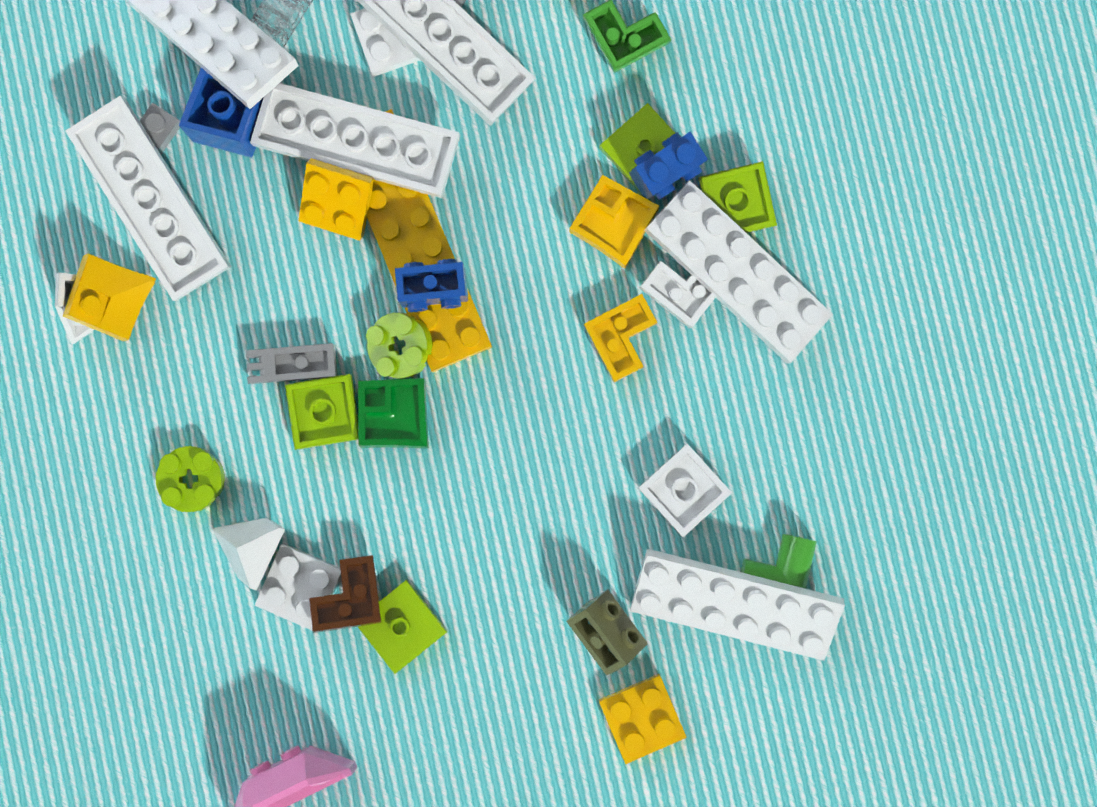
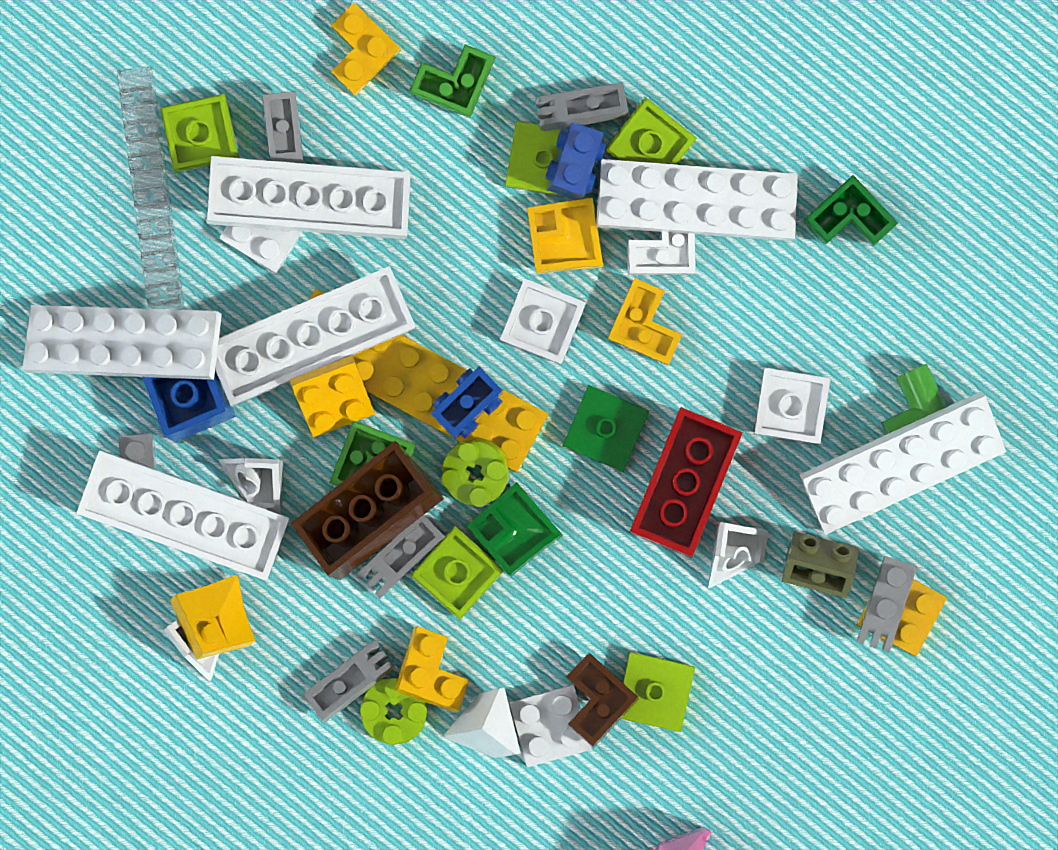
camera: 35 degrees left, 0 degrees up
(171, 428) = (348, 681): none -> light grey hinge
(230, 221) = (257, 480): none -> white slope
(230, 469) = (421, 672): none -> yellow plate
(288, 308) = (366, 511): none -> reddish brown slope
(330, 260) = (360, 447): none -> bright green brick
(527, 392) = (605, 428): none -> green plate
(544, 271) = (542, 321): none -> white plate
(551, 568) = (735, 551): none -> white slope
(553, 483) = (686, 482): none -> red brick
(635, 705) = (887, 602): none -> light grey hinge
(708, 130) = (582, 106): none -> light grey hinge
(855, 370) = (854, 205): none -> green brick

